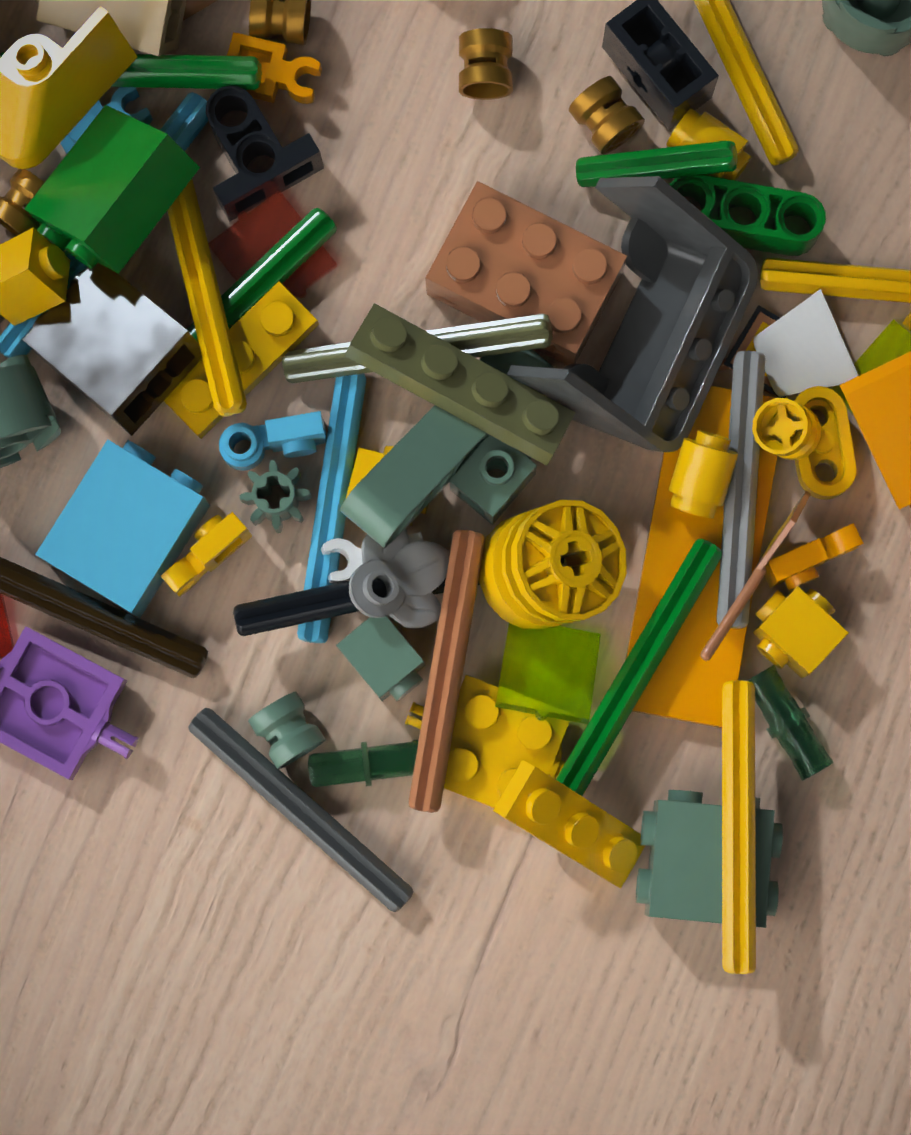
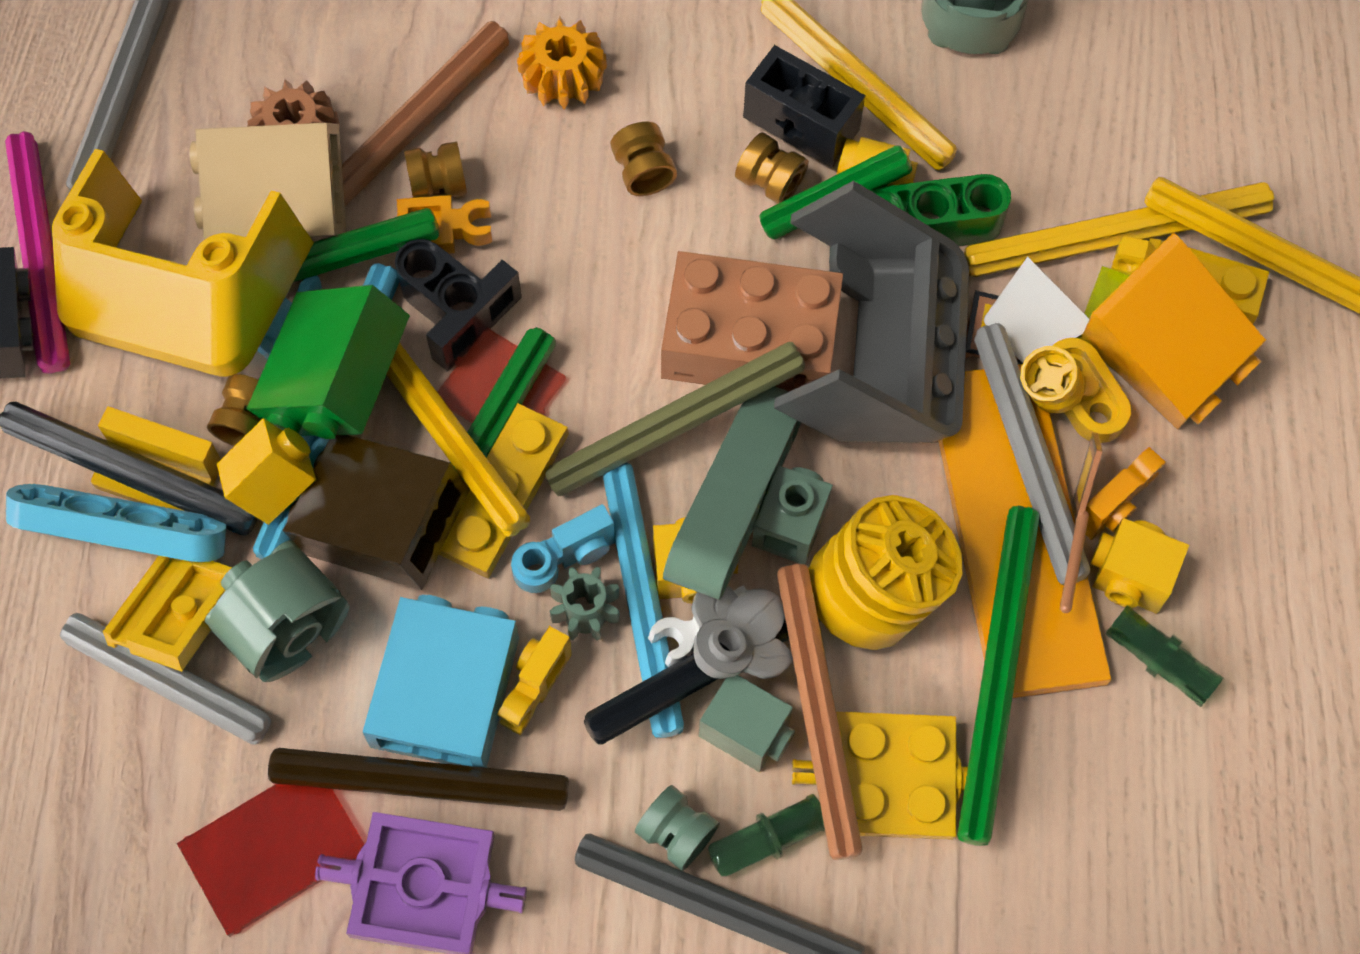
camera: 25 degrees left, 15 degrees down
(460, 384) = (734, 429): olive plate -> none
(549, 672) = (916, 682): clear neon green piece -> none
(570, 824) = (1001, 816): yellow plate -> none
(687, 860) = (1148, 810): sand green brick -> none
(702, 474) = (991, 445): yellow brick -> none
(738, 828) = (1170, 761): yellow axle -> none

